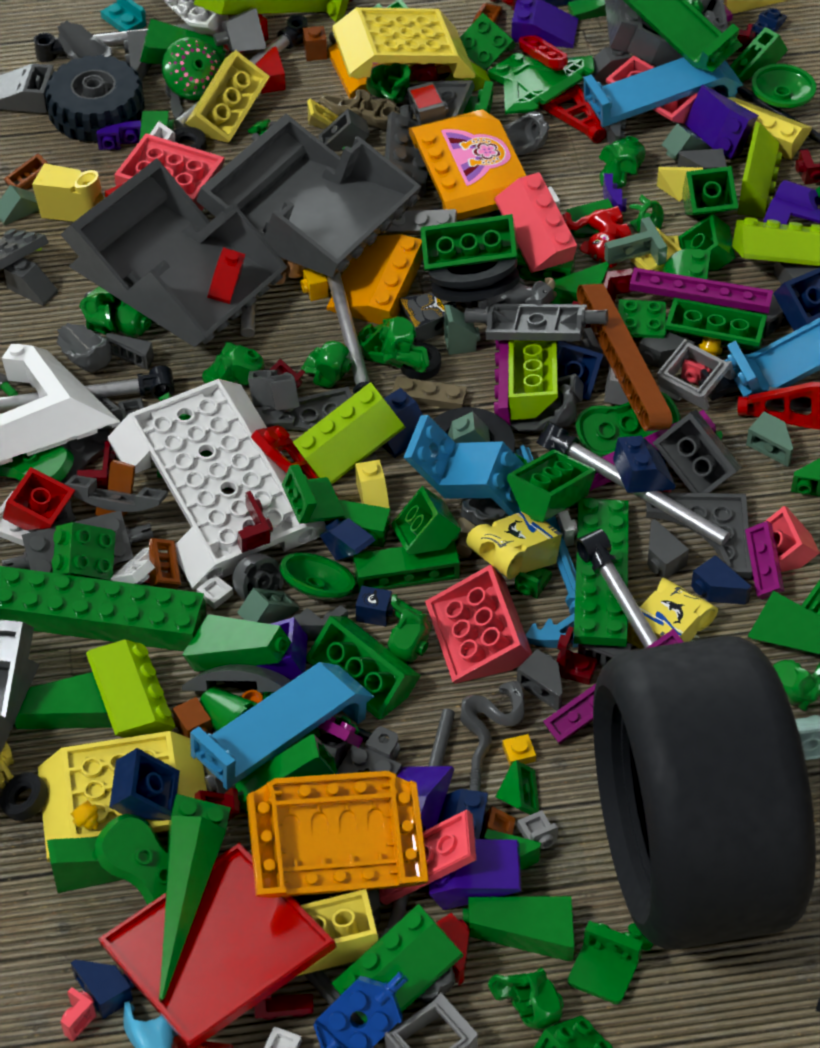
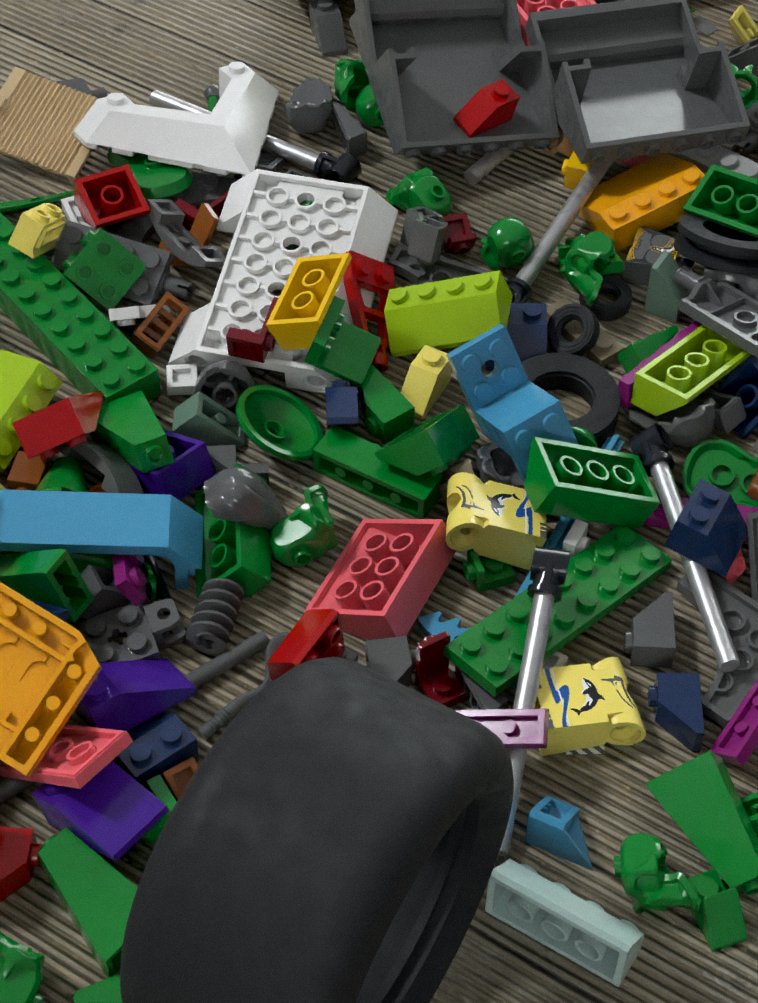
camera: 40 degrees right, 0 degrees up
(19, 552) = (38, 230): none -> light yellow window
(192, 668) = (59, 425): none -> red slope
(275, 477) = (306, 299): none -> yellow slope
(360, 634) = (243, 497): none -> dark grey hair
(374, 606) = (300, 478): dark blue brick -> none
(409, 720) = (215, 616): none -> dark grey piece
(442, 389) = (559, 320): none -> black tyre
(469, 429) = (567, 384): sand green slope -> none
(483, 379) = (644, 348): none -> green slope
(500, 694) = (313, 637): none -> red slope

